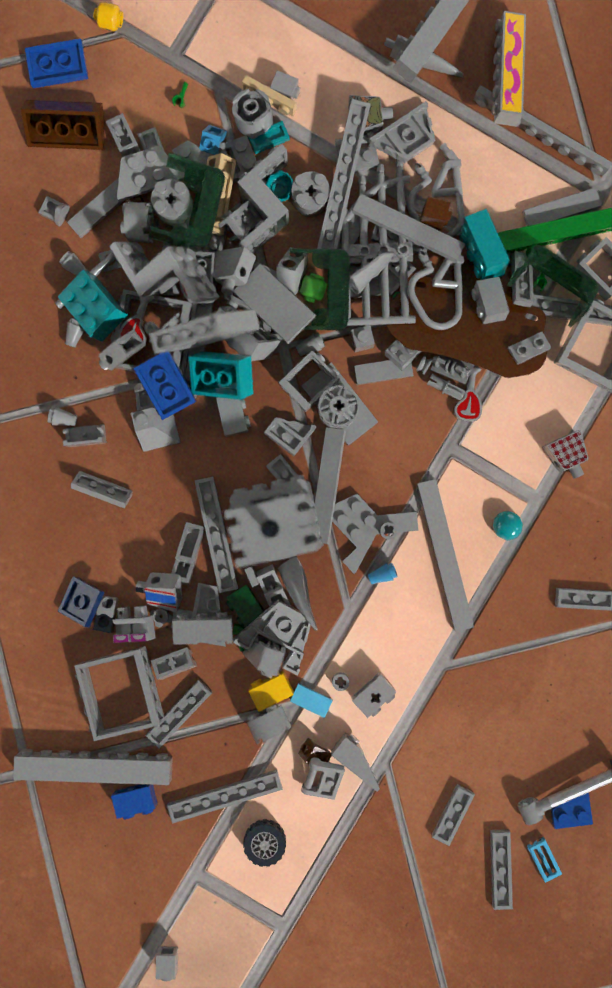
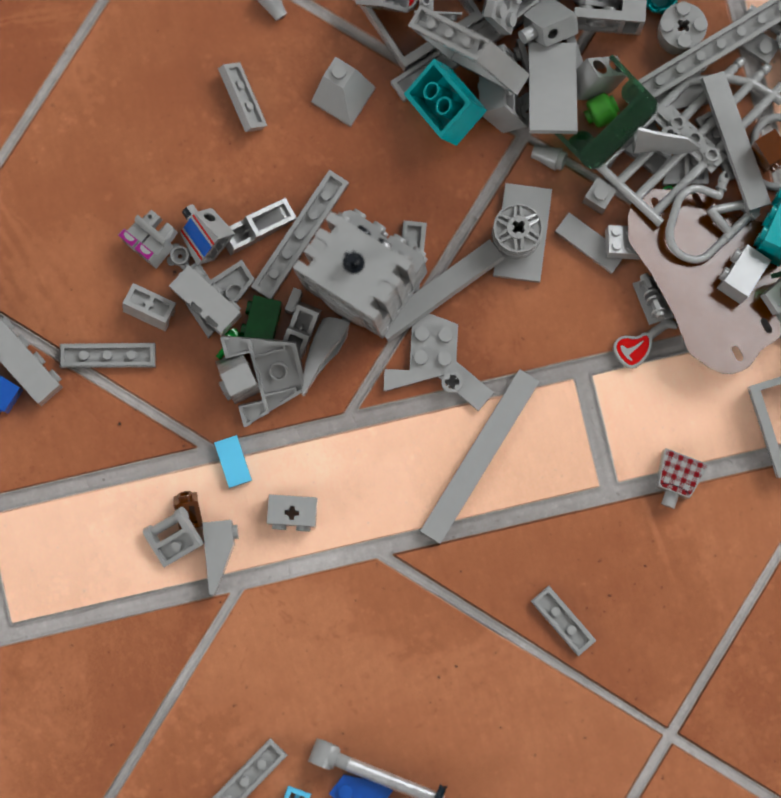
camera: 45 degrees right, 5 degrees down
(81, 601) = (125, 173): dark blue tile -> none
(85, 435) = (275, 38): light grey hinge -> none
(105, 614) = (133, 205): leg -> none
(142, 399) = (362, 56): light grey tile -> none
(149, 688) = (107, 304): light grey window -> none
(165, 384) = (389, 62): blue plate -> none
(224, 796) = (72, 467): light grey tile -> none
(232, 416) = (419, 149): light grey brick -> none
(264, 843) = (65, 542): black wheel -> none
(268, 724) = (177, 439): light grey brick -> none
(270, 691) = (207, 415): yellow brick -> none
(289, 434) = (451, 214): light grey wing -> none
(319, 360) = (515, 164): light grey window -> none
(336, 685) = (267, 471): light grey bush -> none
(383, 574) = (409, 416): dark azure cone -> none
(424, 365) = (630, 273): light grey bush -> none
(446, 387) = (630, 312): light grey axle -> none
(453, 814) = (252, 689): light grey tile -> none
(507, 525) = (561, 486): teal hair -> none
(529, 348) = (735, 348): light grey bracket -> none

